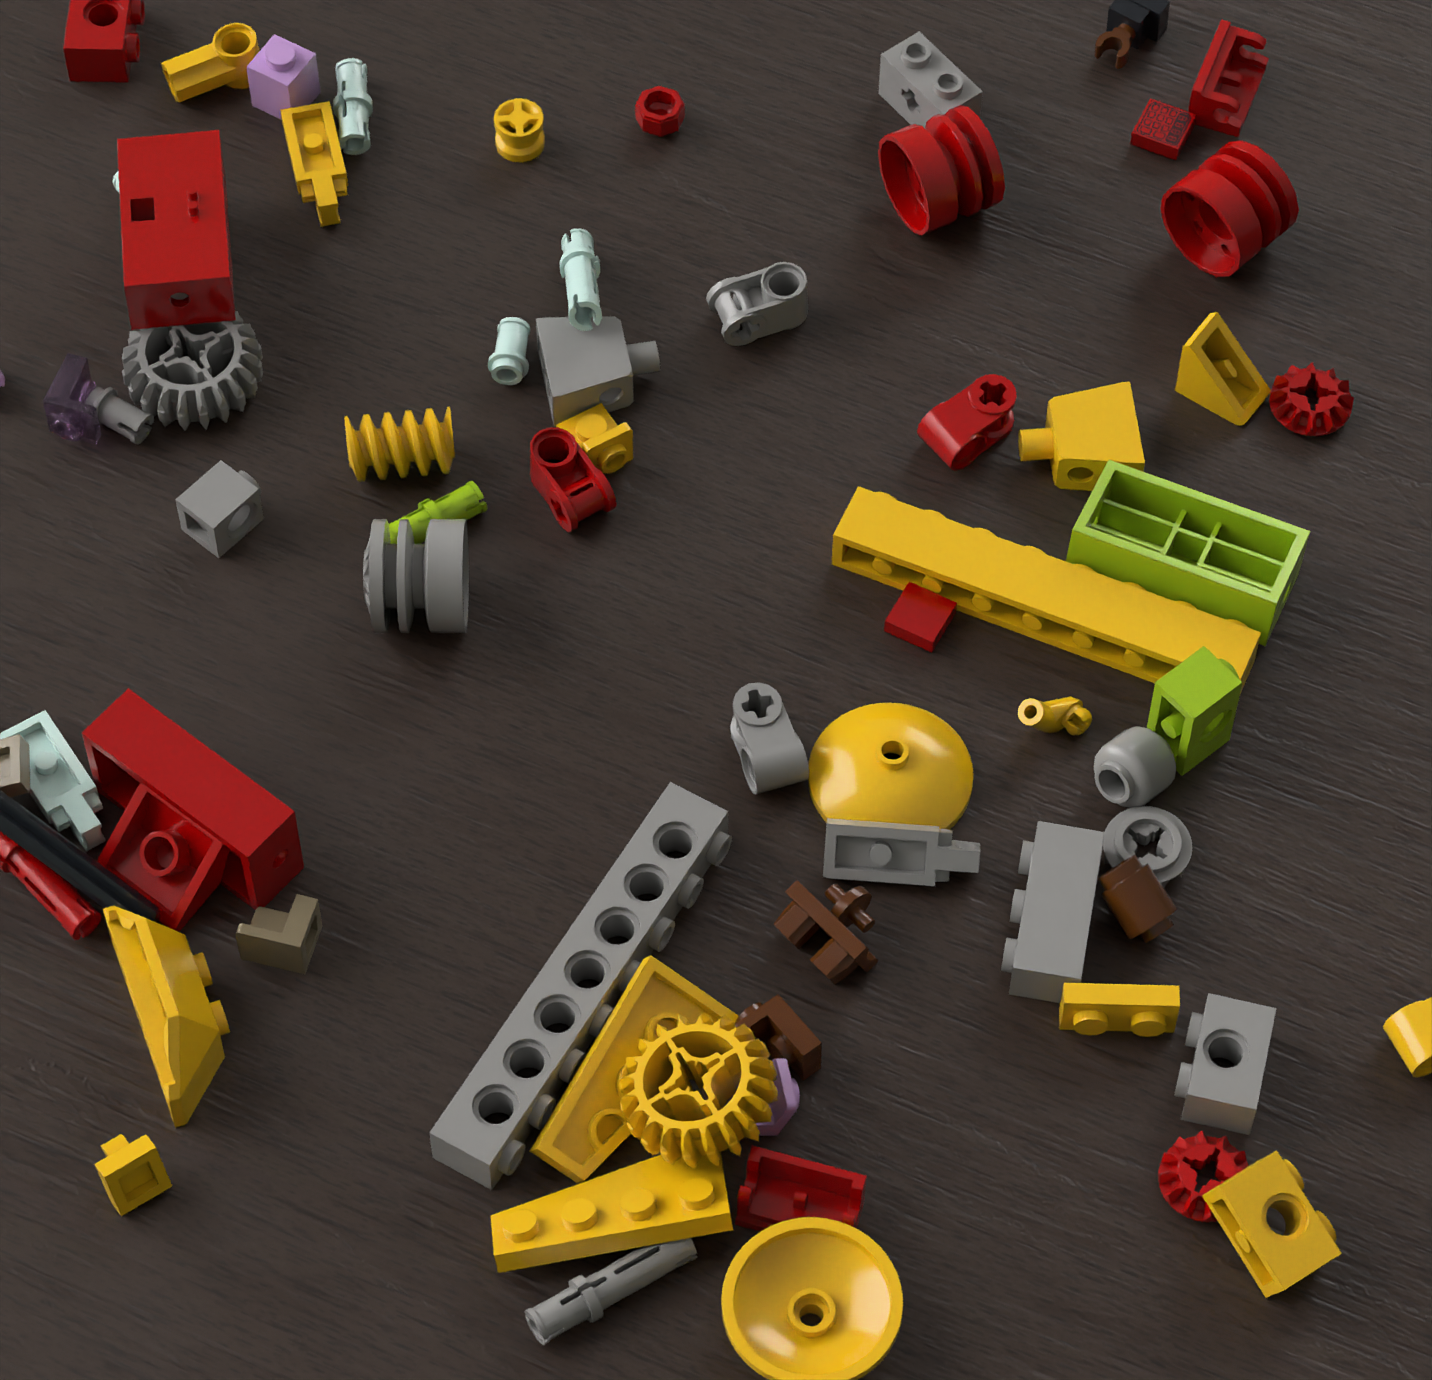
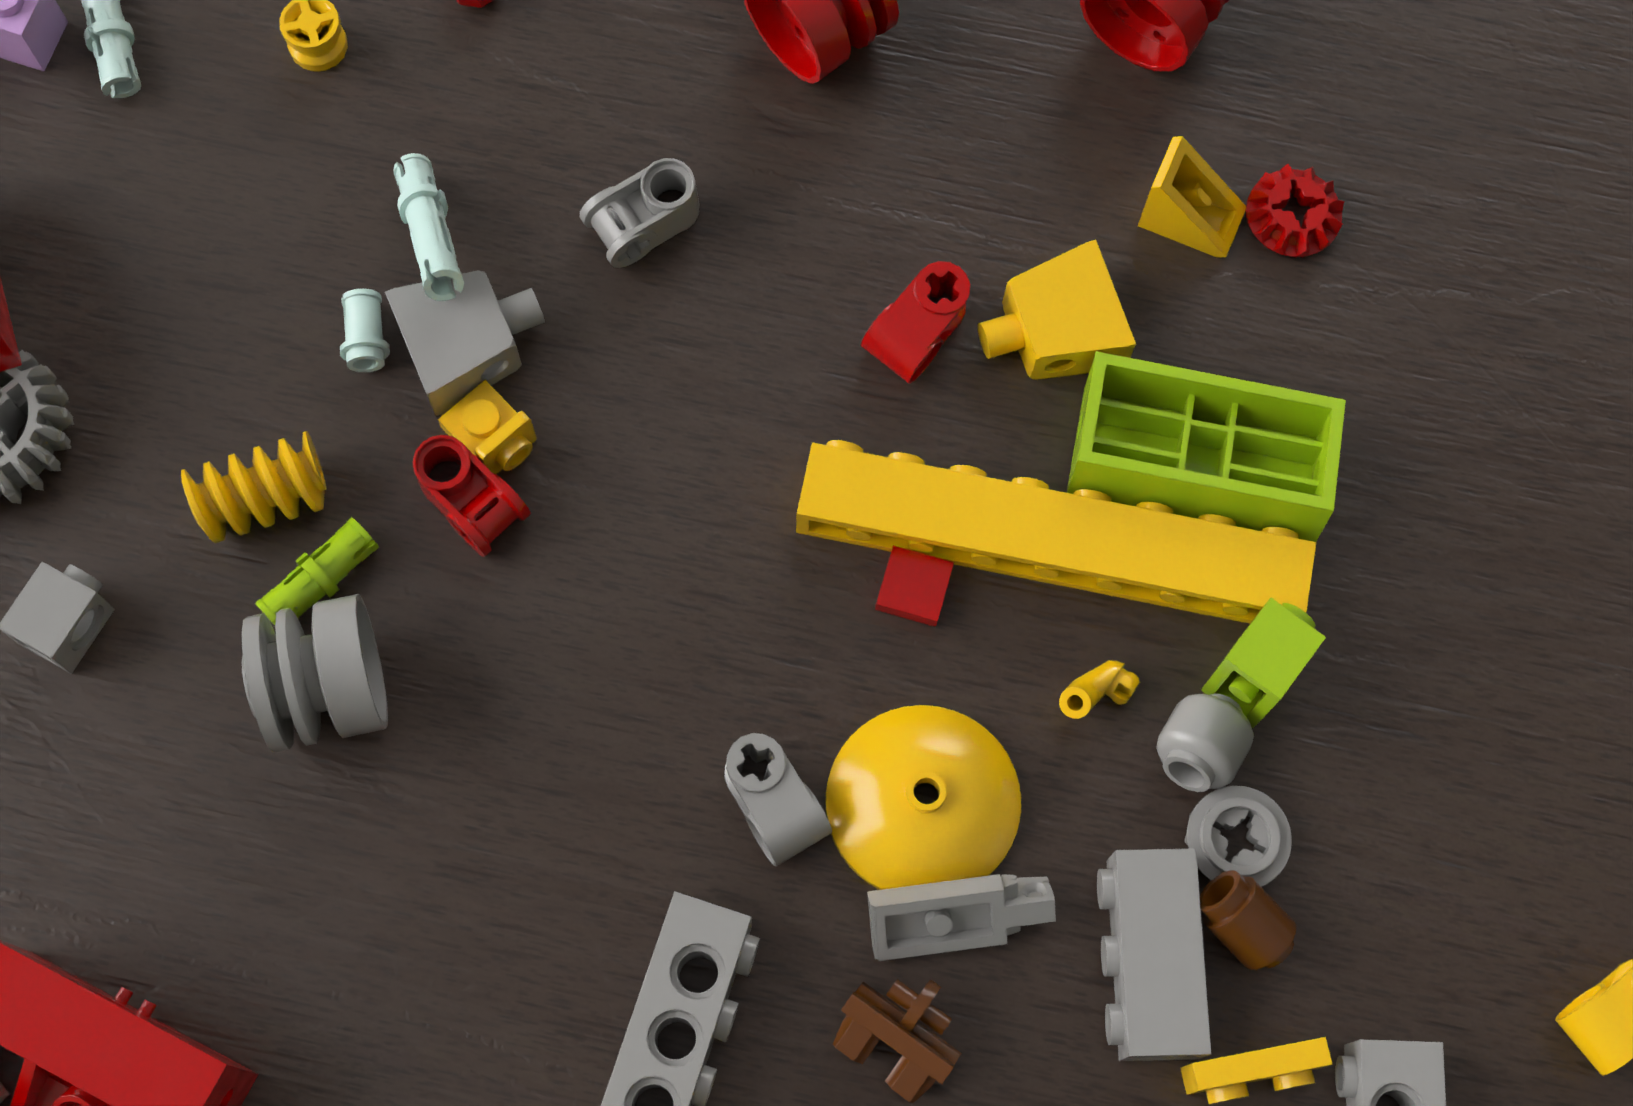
camera: 15 degrees left, 15 degrees up
(316, 158) = (78, 115): yellow hinge -> none

